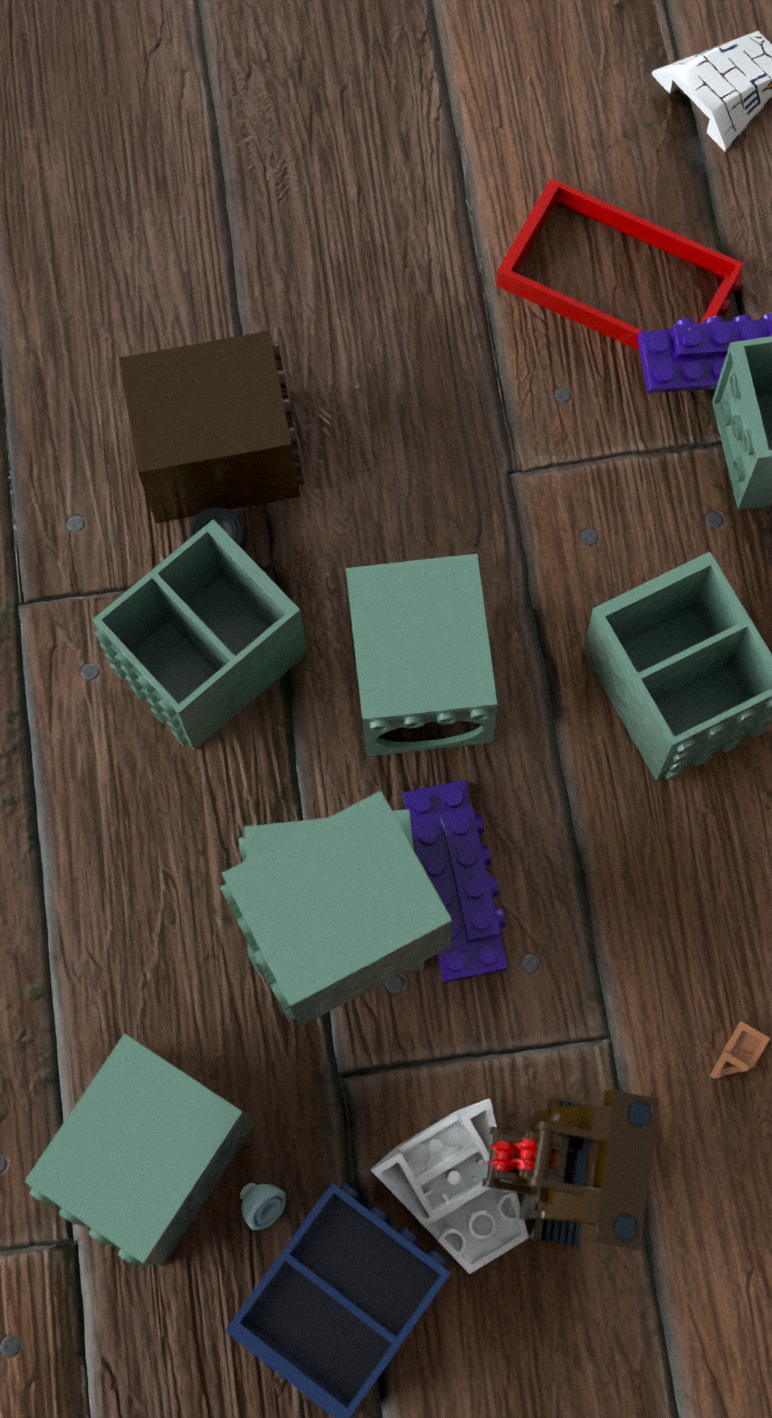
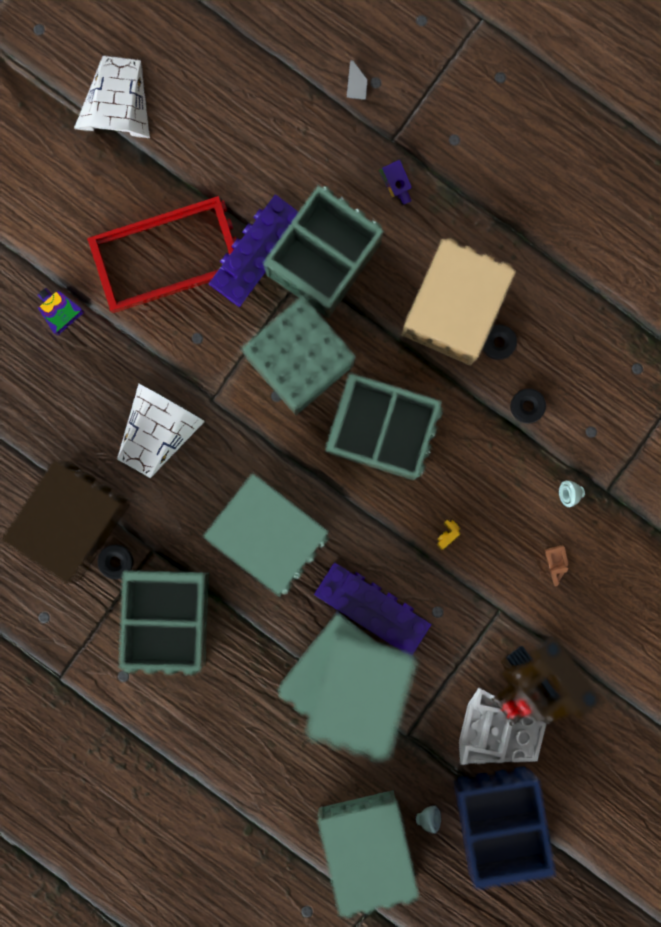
camera: 50 degrees left, 15 degrees up
(412, 445) = (155, 431): none -> white wedge
(440, 226) = (58, 310): none -> torso
(634, 880) = (446, 538): none -> yellow bracket
(664, 488) = (299, 356): none -> sand green container

